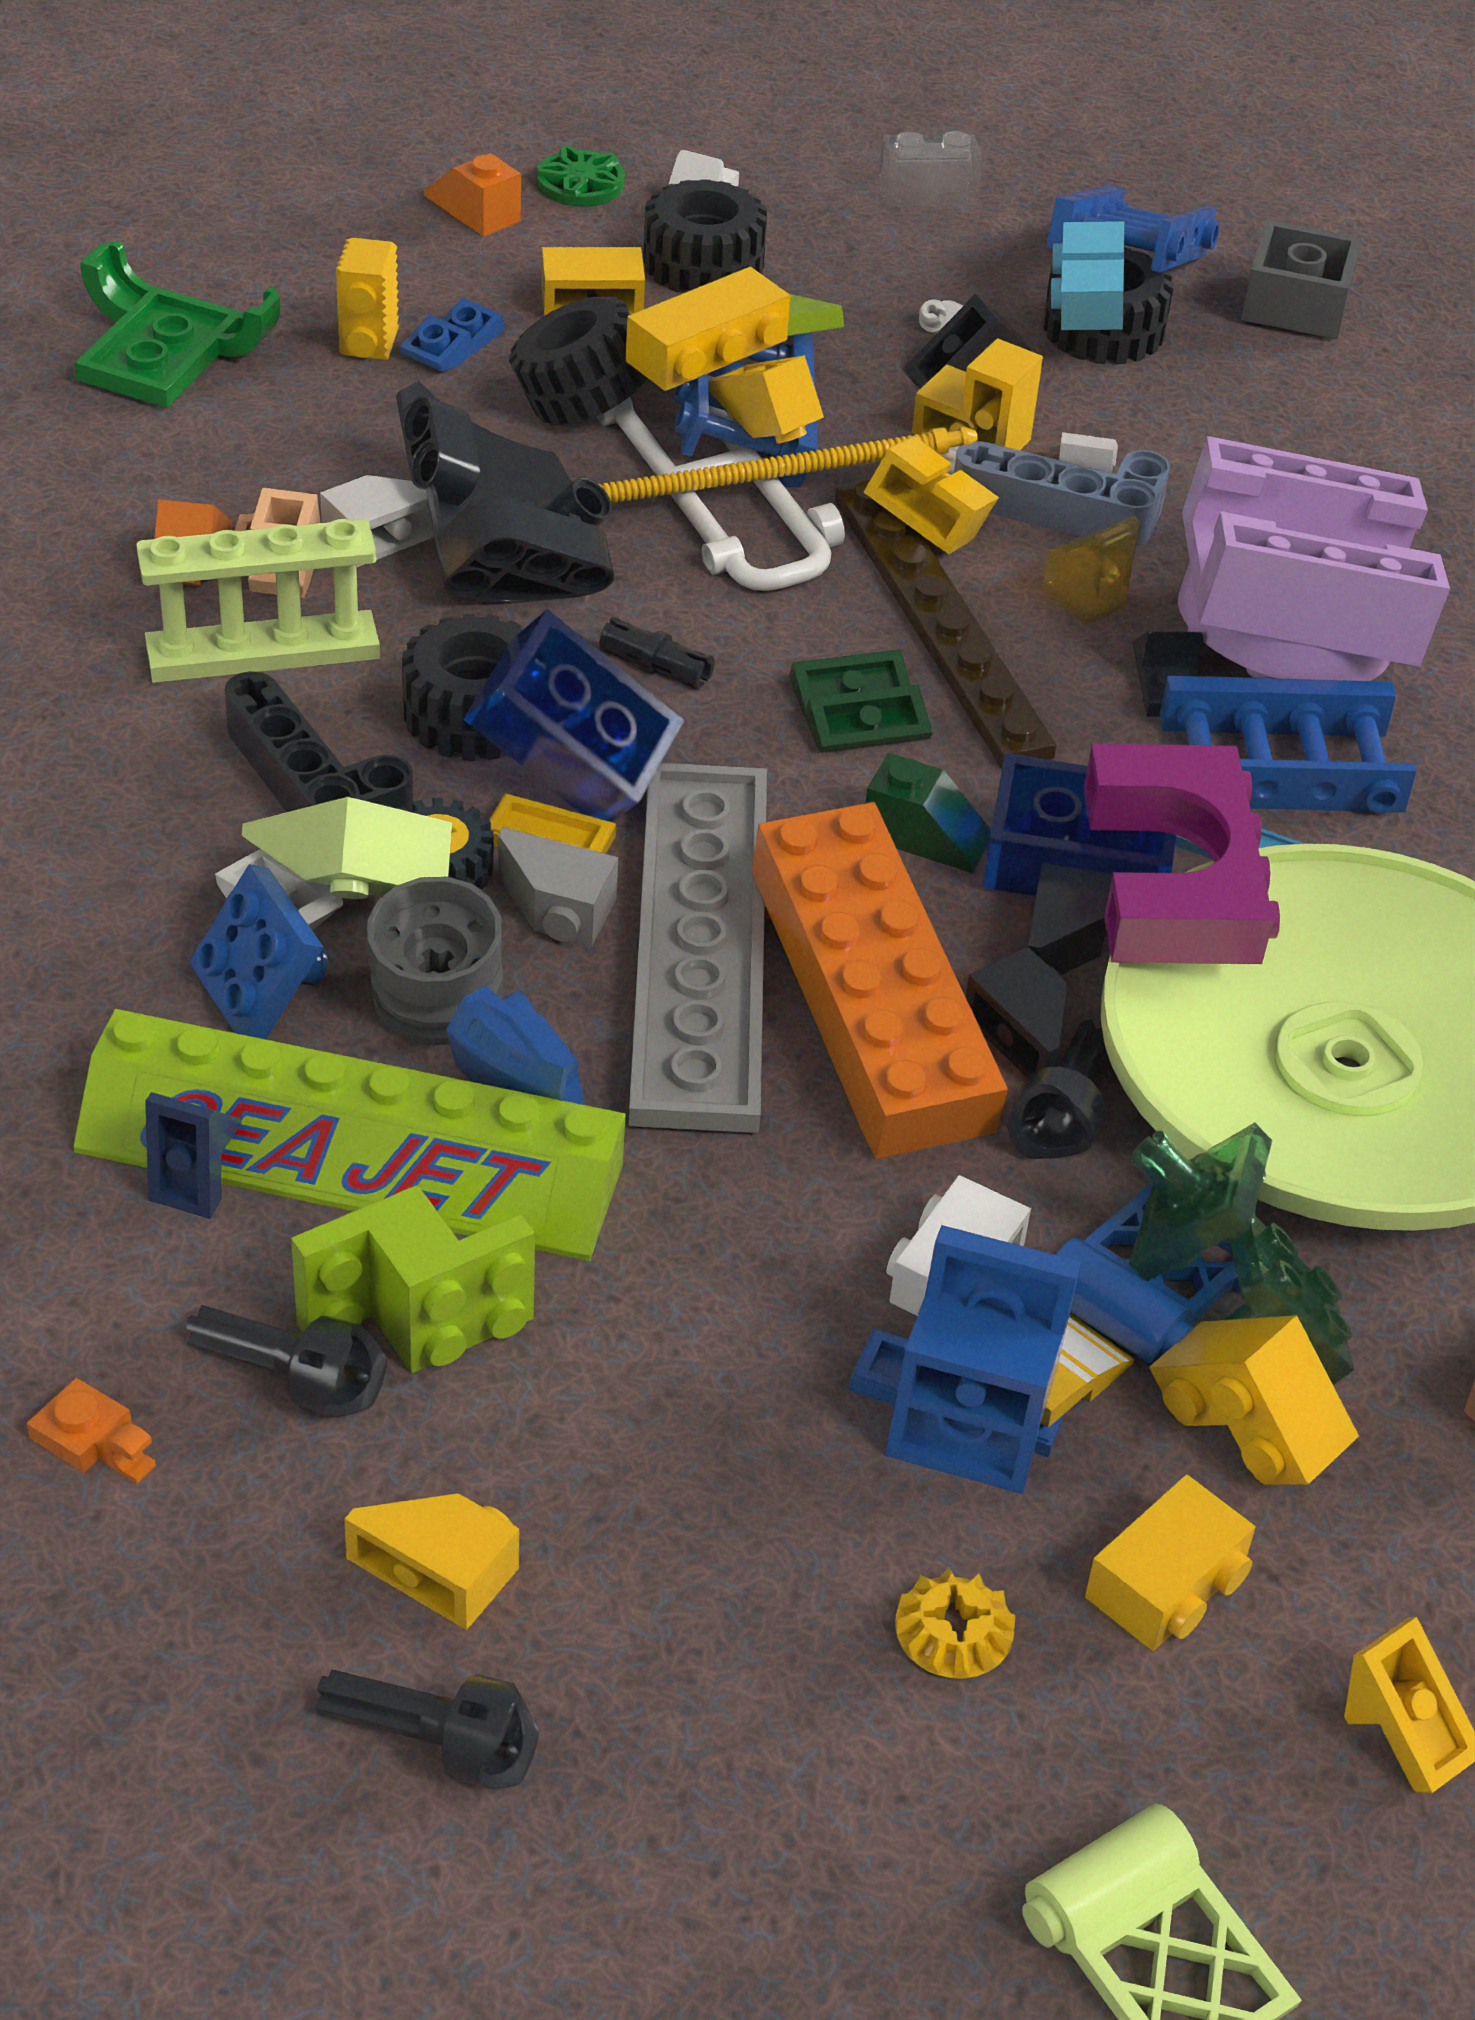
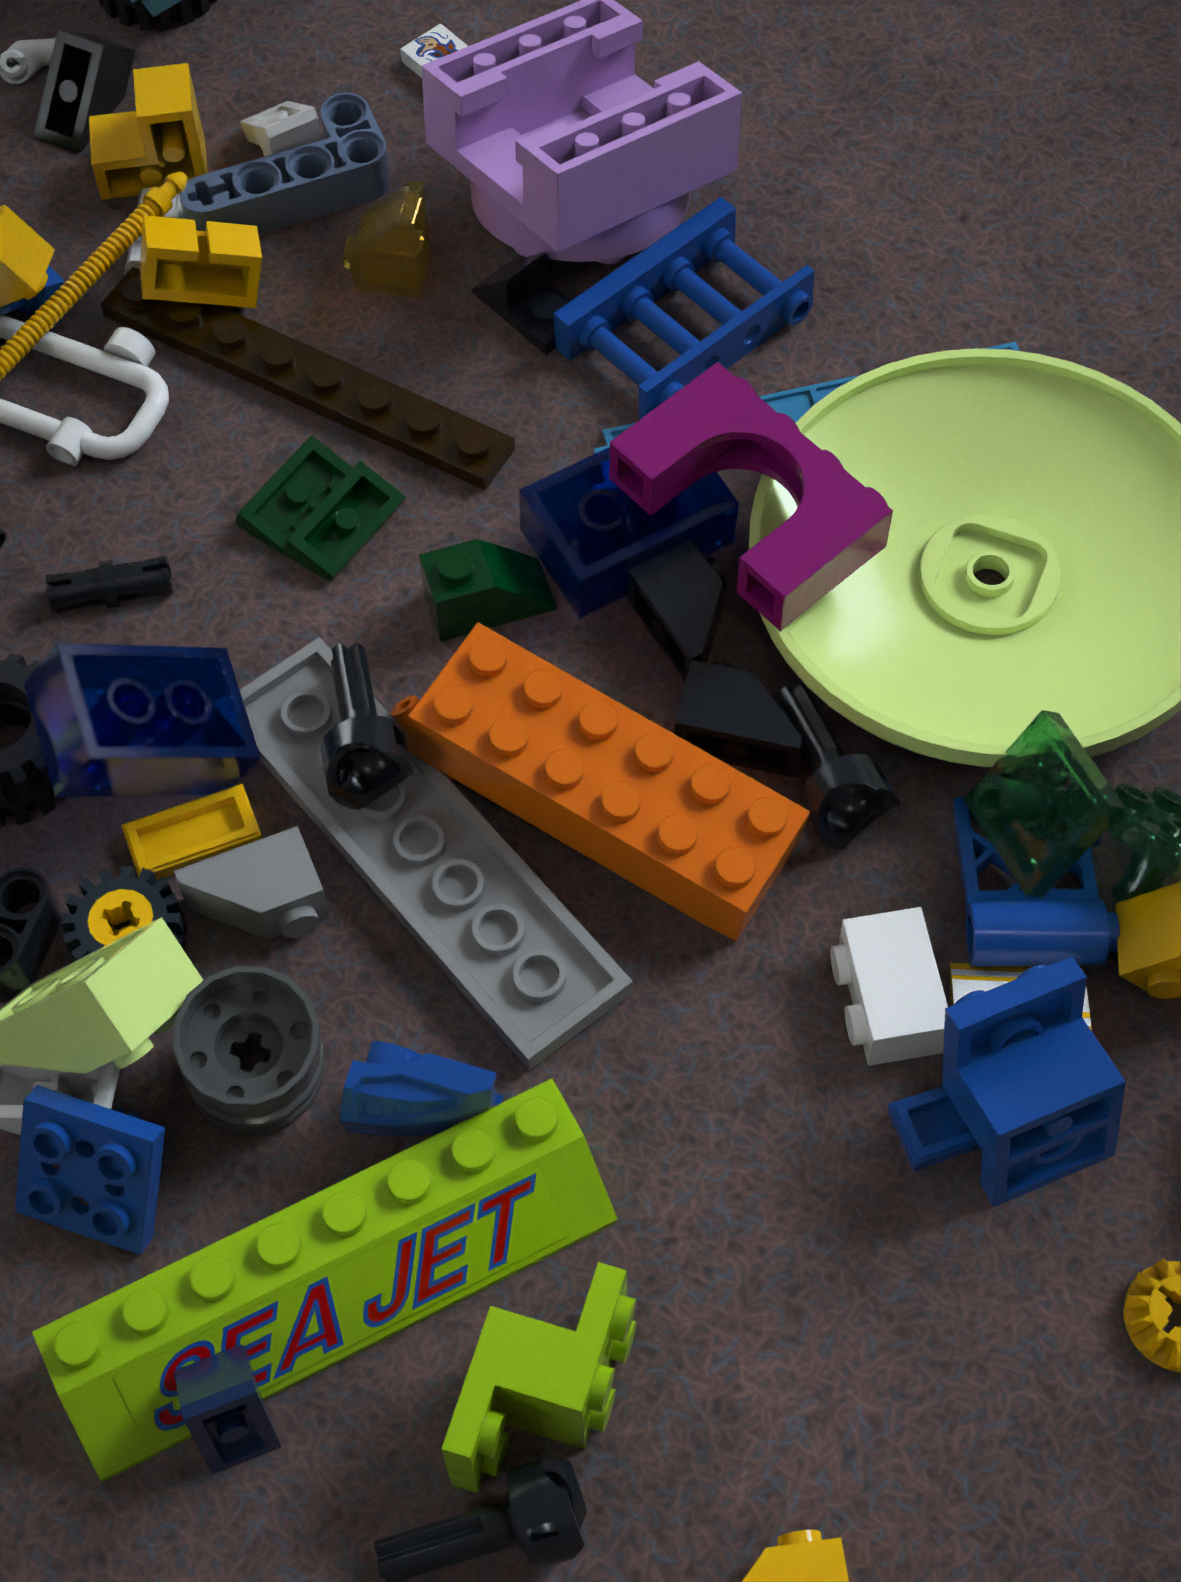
camera: 35 degrees left, 15 degrees up
(717, 832) = (364, 751): none -> black piece

